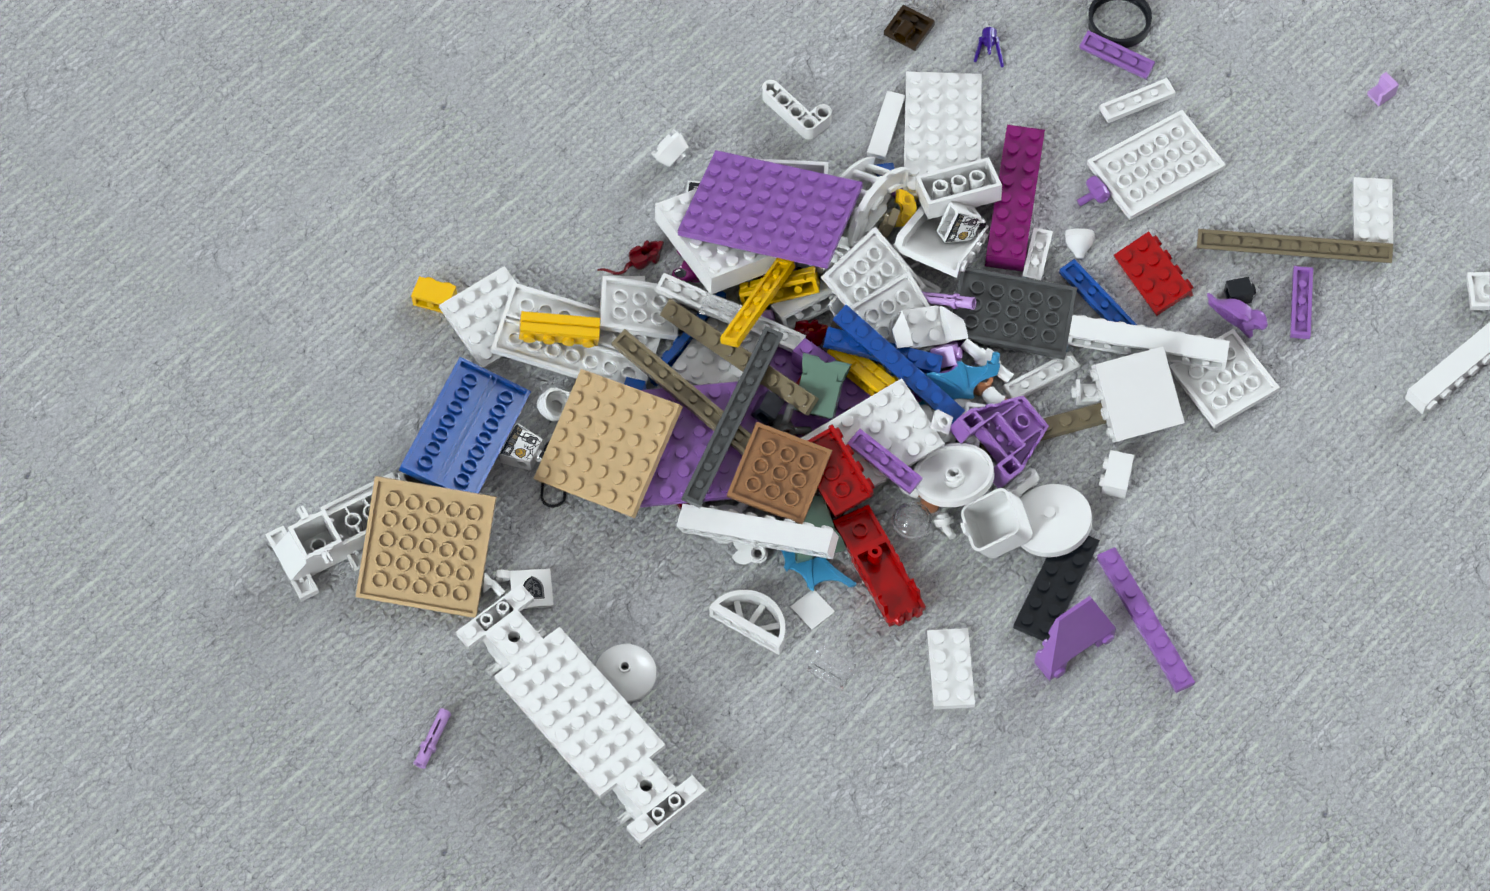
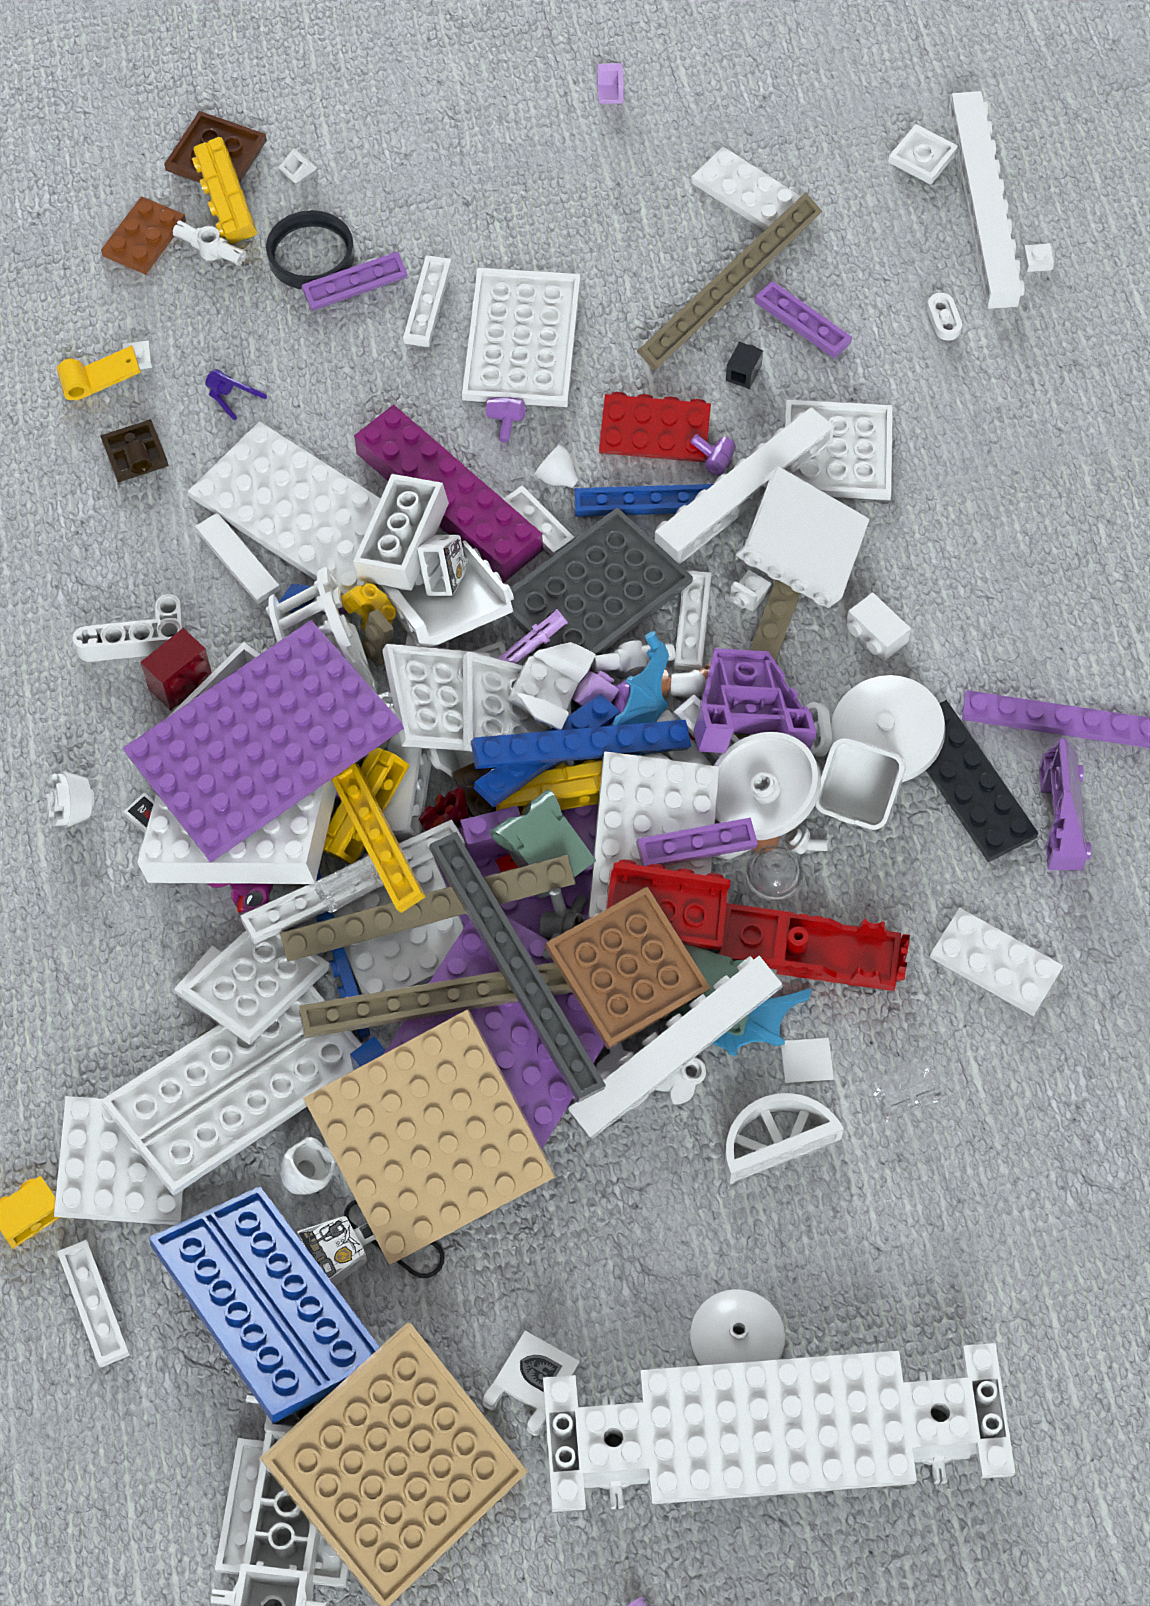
camera: 55 degrees left, 0 degrees up
(411, 359) = (93, 1303): none -> white plate
(489, 583) = (501, 1416): white plate -> none
(559, 329) = (214, 1089): yellow brick -> none
(641, 257) = (184, 931): dark red animal -> none
(767, 407) = (530, 920): black brick -> none
(787, 141) = (176, 669): none -> dark red brick
(941, 423) = (689, 751): white bracket -> none
(1162, 318) = (718, 456): none -> medium lavender piece
(1239, 314) = (774, 382): medium lavender animal -> none
(1372, 378) = (946, 318): none -> white plate
(1468, 402) = (1038, 257): none -> white plate

